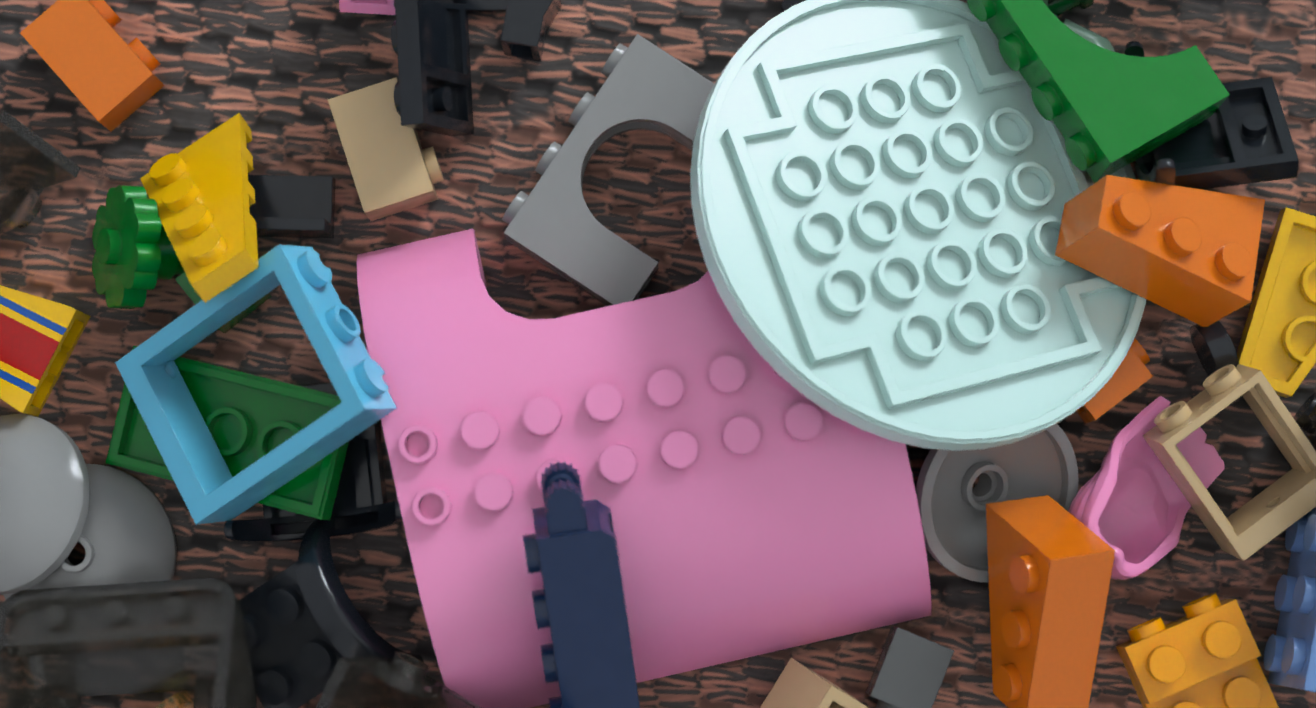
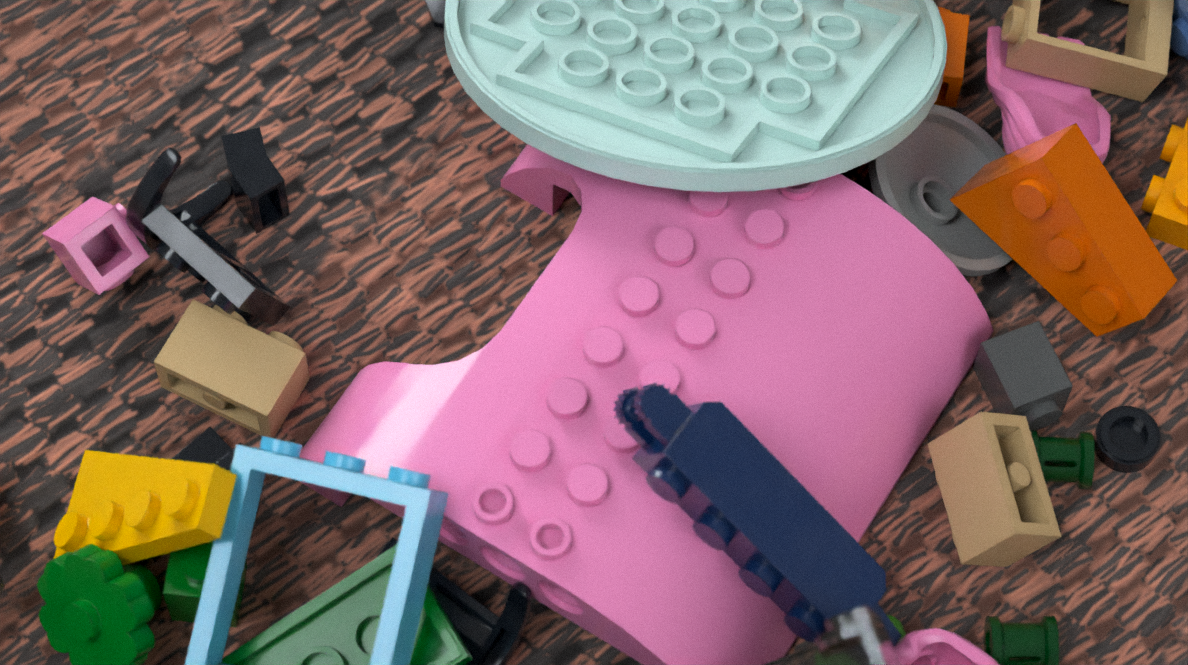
camera: 45 degrees left, 20 degrees down
(553, 222) = (398, 155): light grey arch -> none

